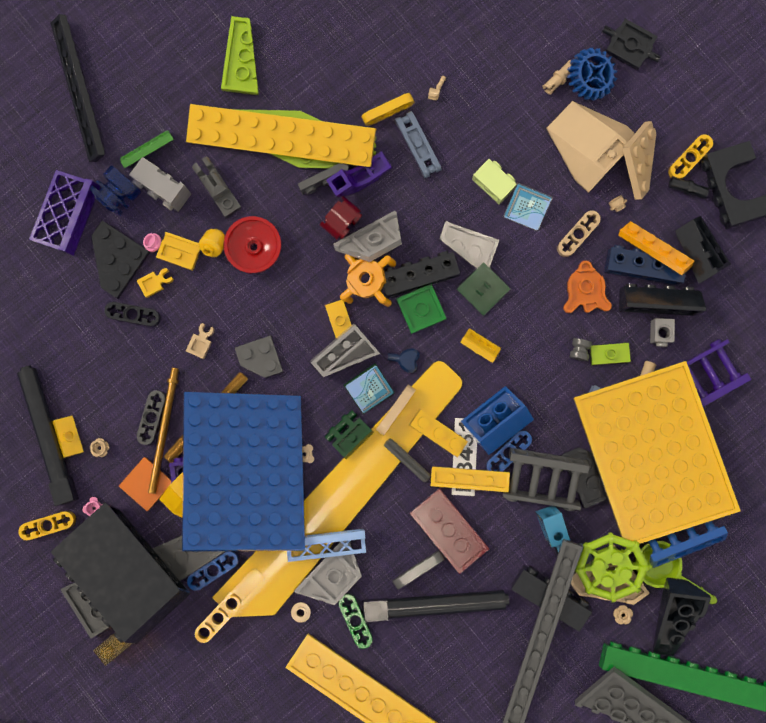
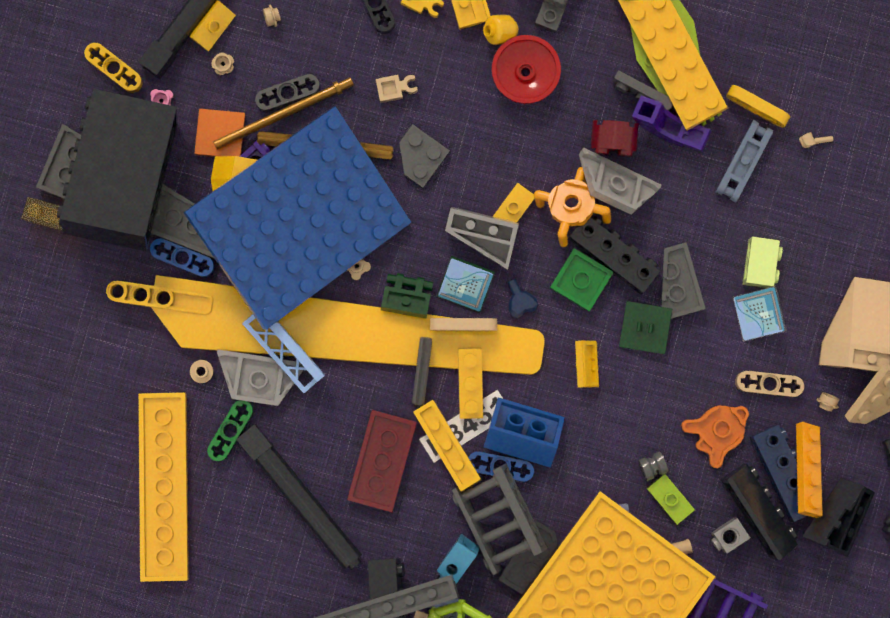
camera: 50 degrees right, 0 degrees up
(90, 391) = (271, 16): none -> tan plate
(418, 569) = (323, 457): beam -> none

